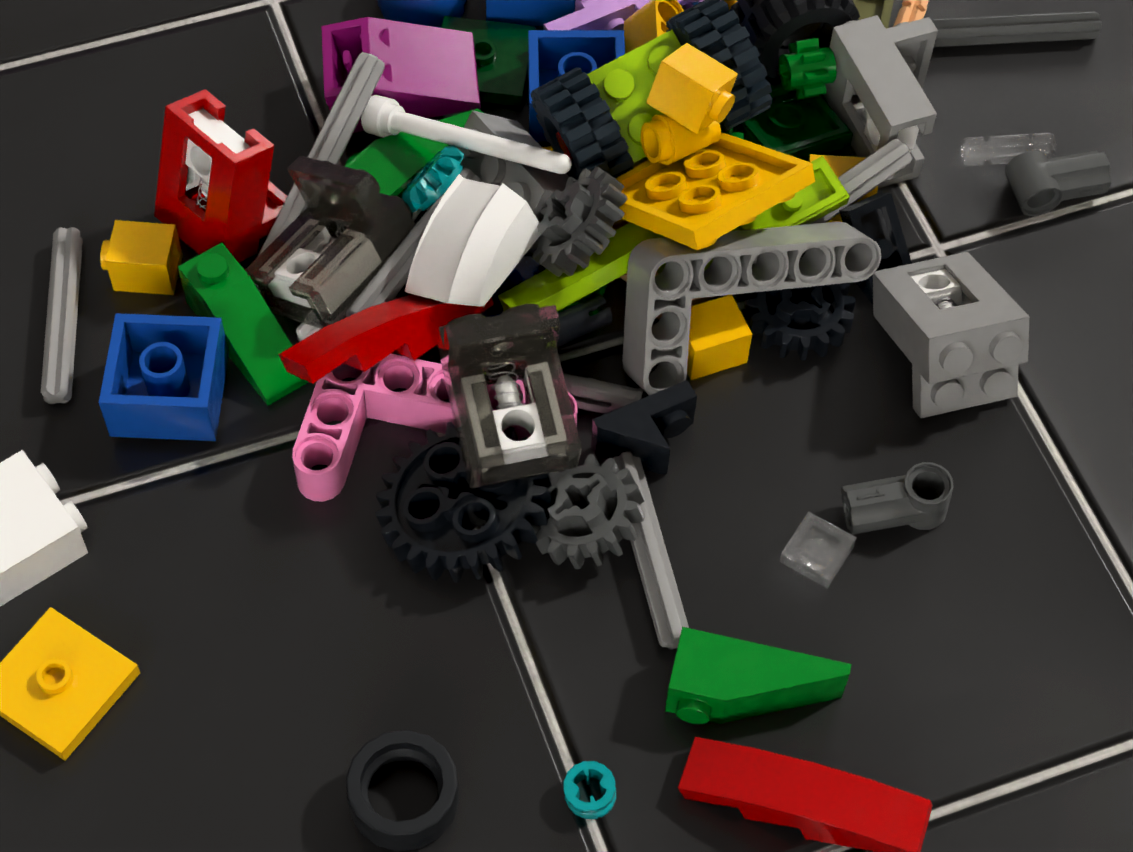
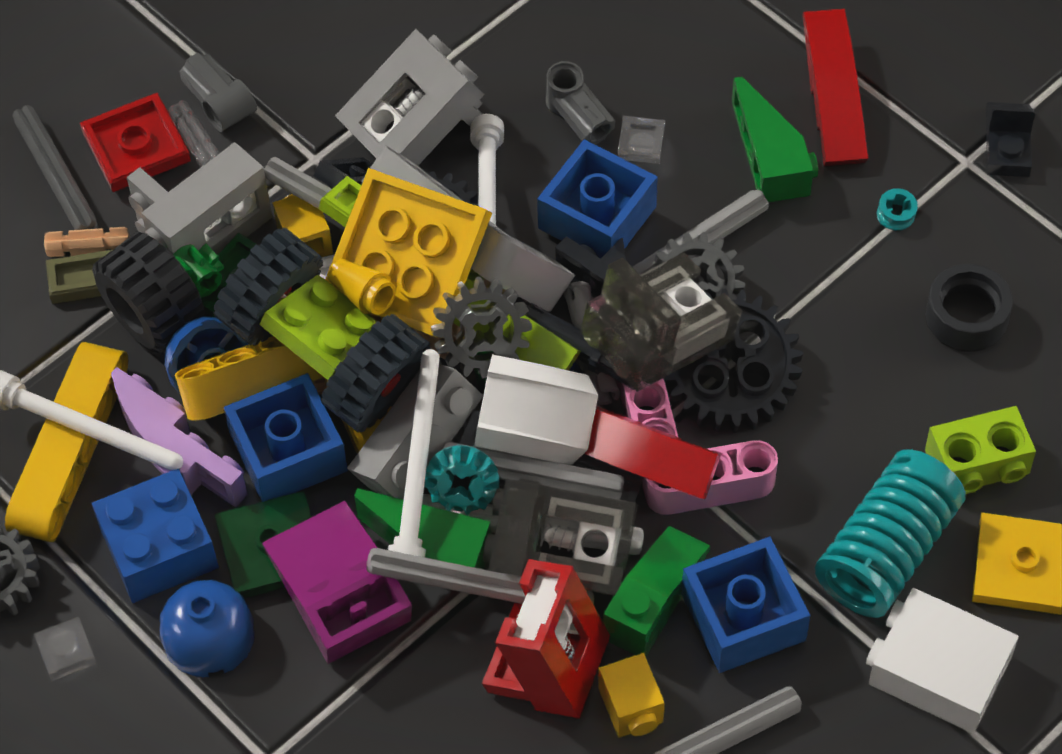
camera: 110 degrees left, 0 degrees up
(155, 542) = (890, 533): none -> teal piece
(217, 698) = (976, 442): none -> lime brick
(693, 88) = (334, 266): yellow brick -> none
(736, 451) = (597, 199): none -> blue brick
(888, 395) = (487, 137): none -> white piece
(1018, 95) = (133, 138): none -> red plate

